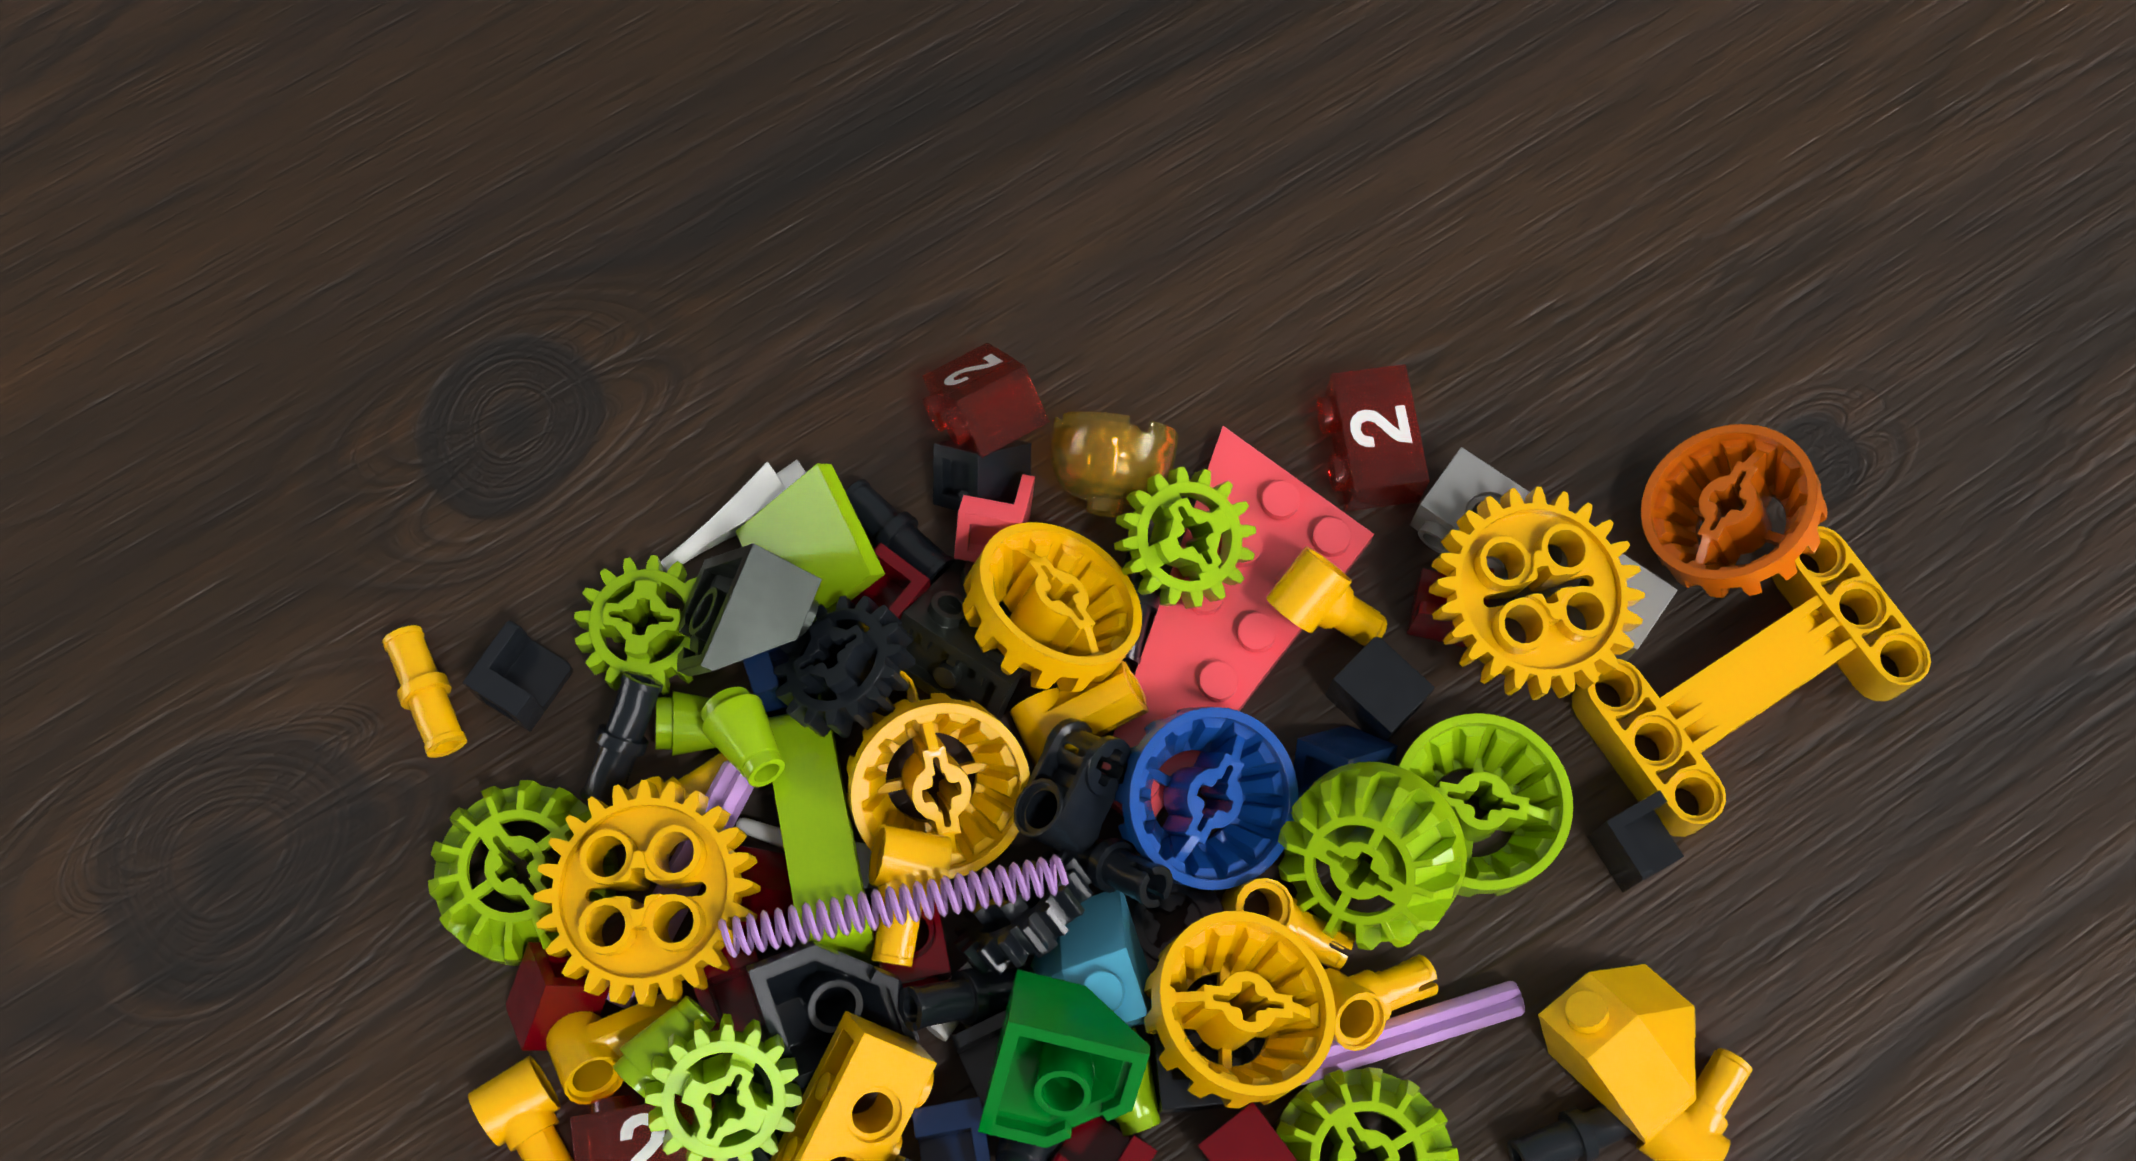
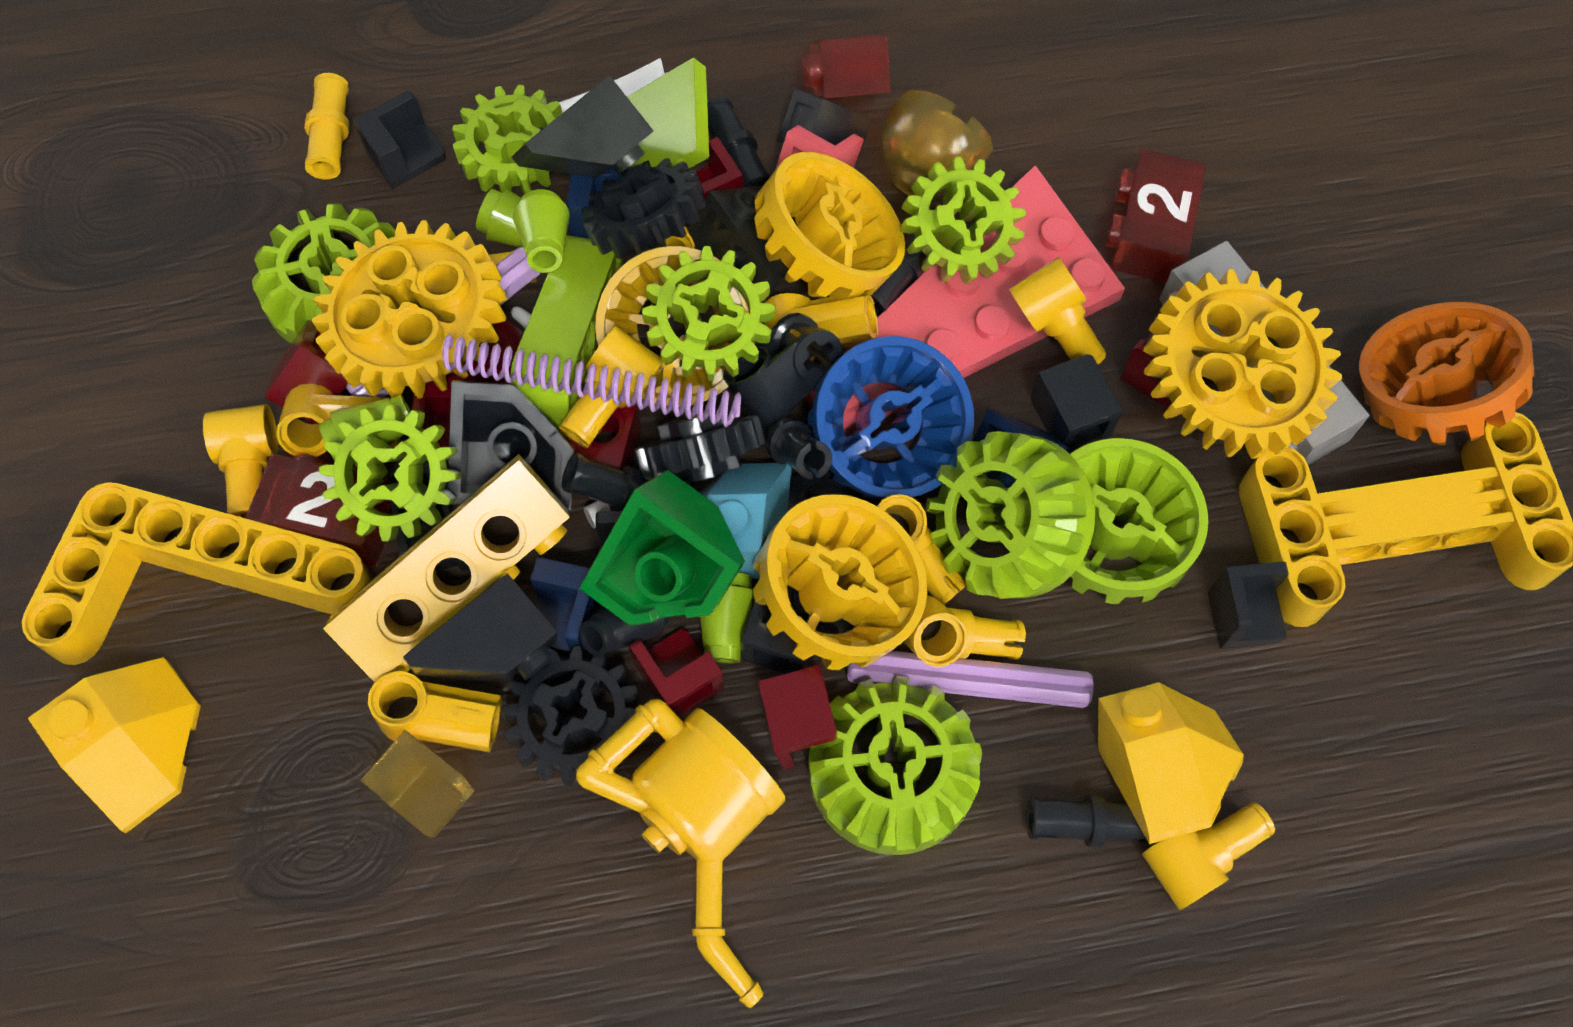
camera: 25 degrees right, 5 degrees down
(622, 736) = (461, 196): black pin -> none
(981, 742) = (687, 302): none -> lime gear

